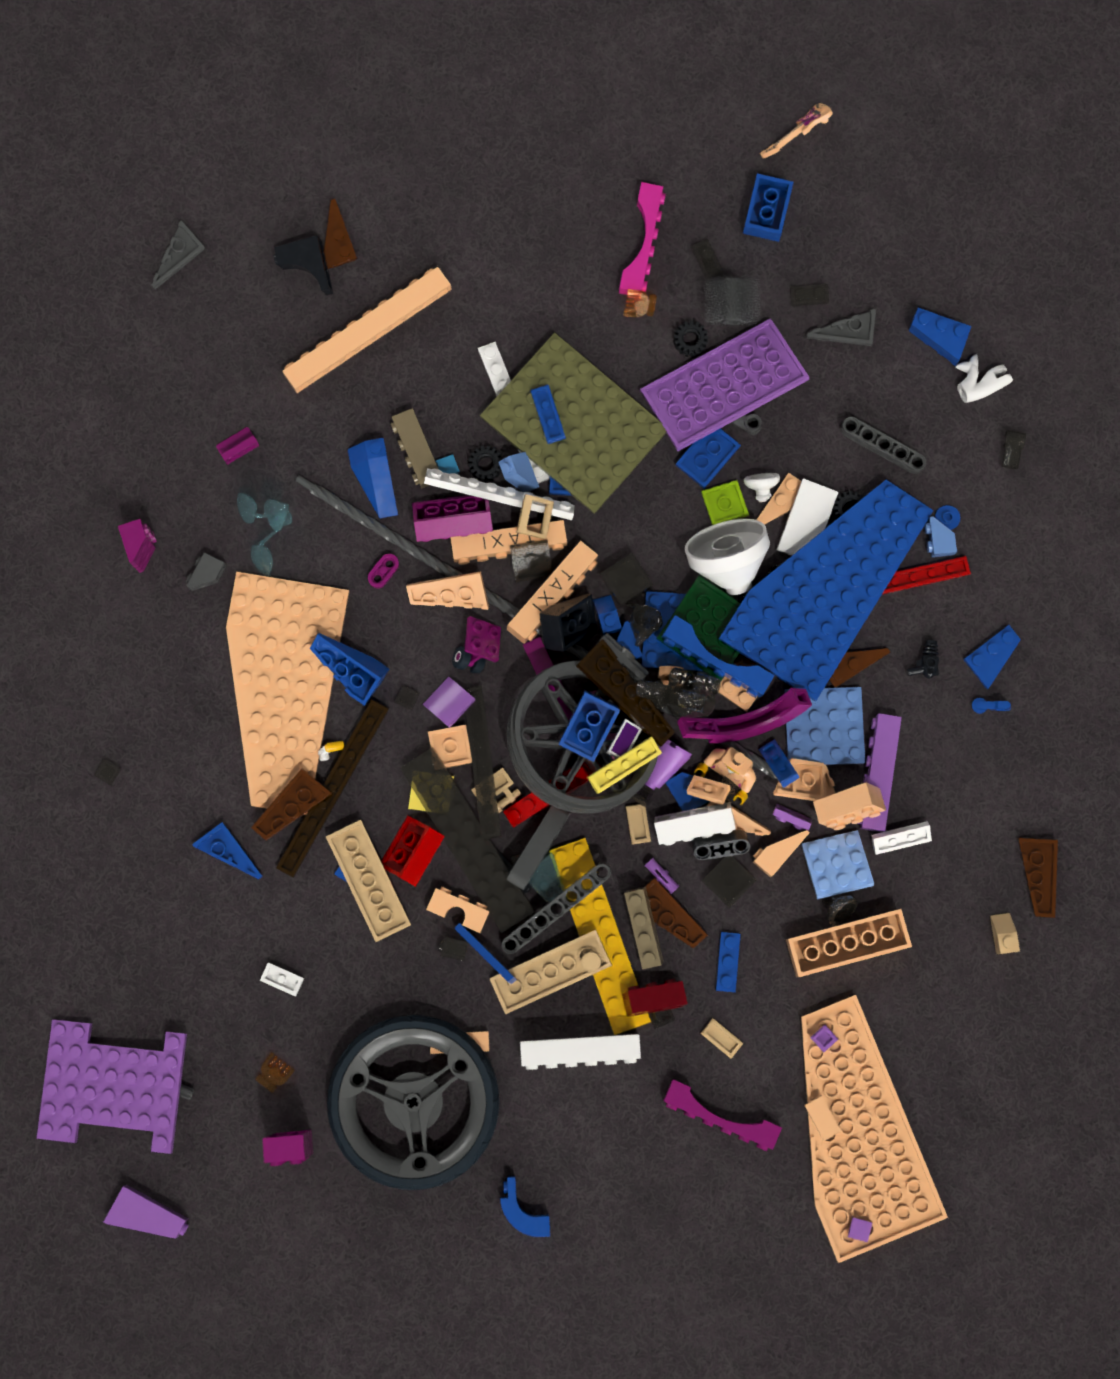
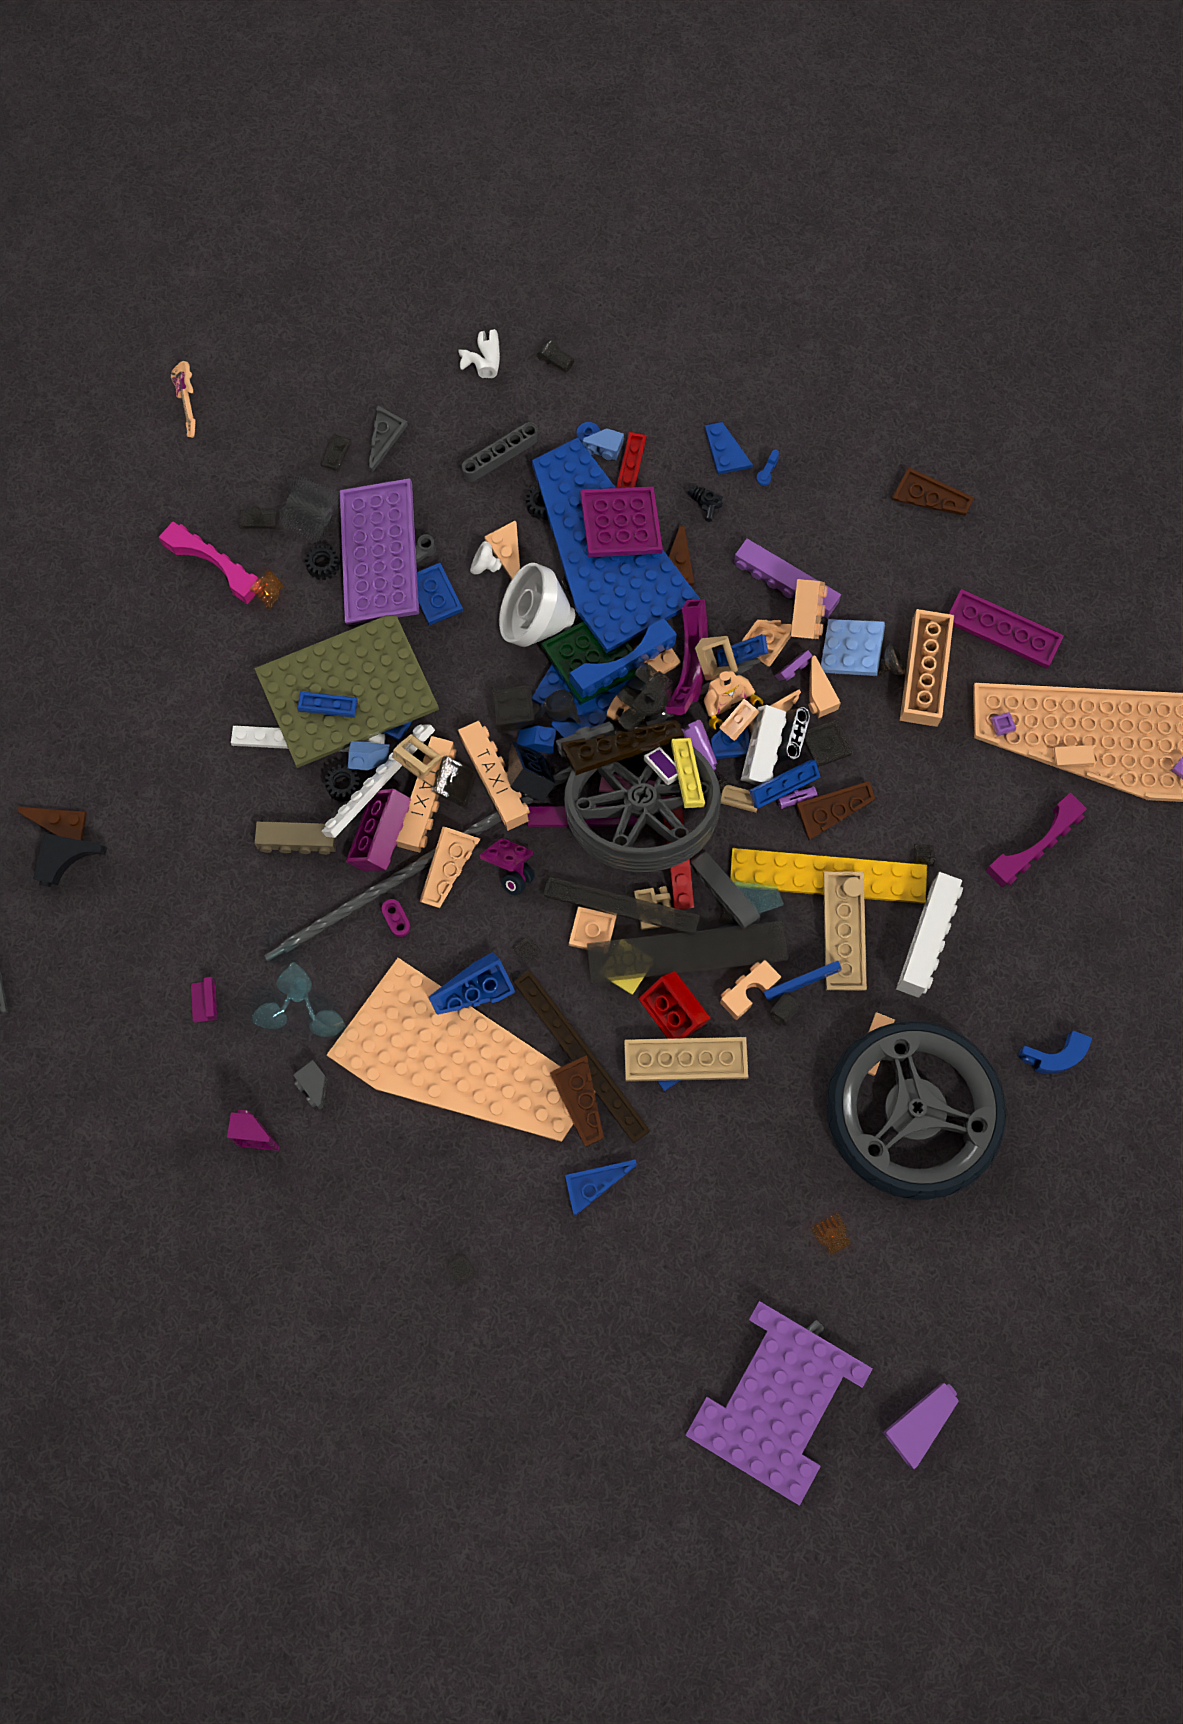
camera: 65 degrees left, 10 degrees down
(282, 979) = (744, 1185): white plate -> none
(287, 1146) = (916, 1242): magenta brick -> none
(328, 748) = (540, 1042): arm -> none
(367, 329) = (159, 833): light nougat brick -> none
(372, 470) = (293, 885): blue wedge -> none
(448, 465) = (325, 815): dark azure tile -> none
(449, 702) = (549, 912): medium lavender slope -> none
(552, 916) = (788, 888): dark grey beam -> none
(589, 726) = (637, 785): blue slope -> none
(644, 927) = (839, 830): dark tan brick -> none
(654, 998) = (907, 849): dark red brick -> none
(668, 858) = (784, 783): none -> blue tile
(721, 1038) = (966, 812): tan tile -> none
(725, 502) = (484, 599): lime tile -> none
(728, 962) = (899, 776): blue plate -> none
(755, 736) = (707, 658): none -> tan tile
(768, 207) = (240, 448): blue brick -> none
(807, 516) = (531, 537): white tile -> none
(829, 729) = (730, 602): medium blue plate -> none
(857, 591) = (621, 521): none -> magenta plate
(901, 837) = (851, 587): white plate -> none
(928, 1001) = (1005, 629): none -> magenta plate
(940, 333) = (427, 365): blue wedge -> none
(1004, 934) = (972, 543): tan slope -> none

